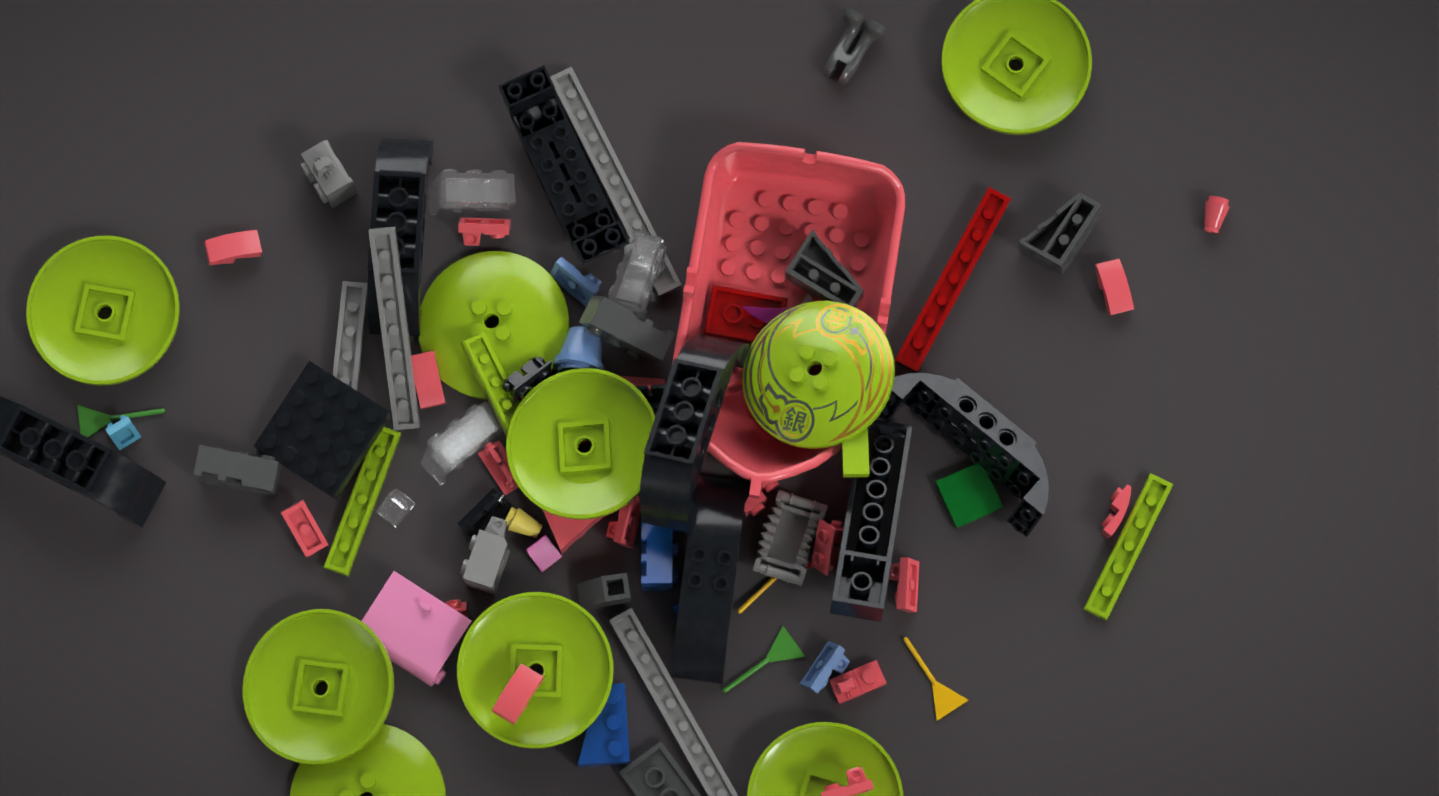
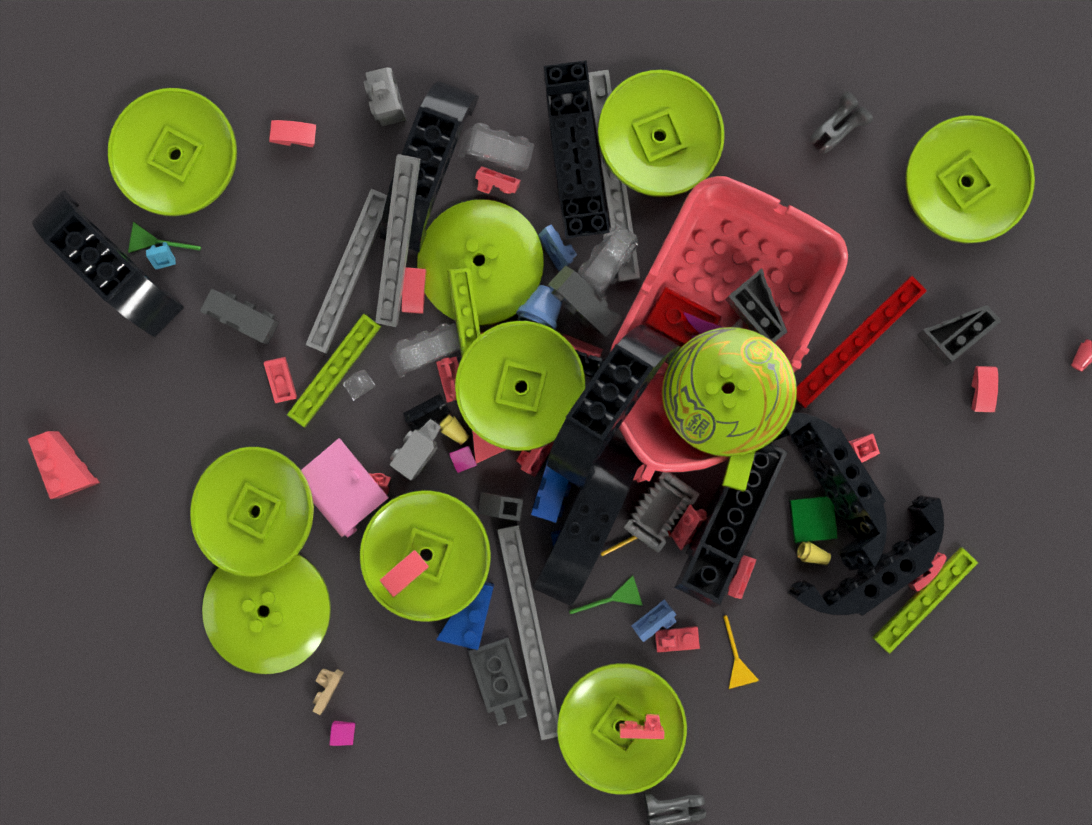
camera: 15 degrees right, 10 degrees up
(78, 709) = (59, 465): none -> coral wedge
(323, 430) = (318, 305): black plate -> none
(535, 372) = (500, 314): black hinge -> none
(658, 85) = (665, 104): none -> lime dish
(980, 533) = (813, 554): none -> light yellow cone
(1000, 394) = (865, 447): none -> coral slope
(1092, 497) = (898, 568): none -> black slope

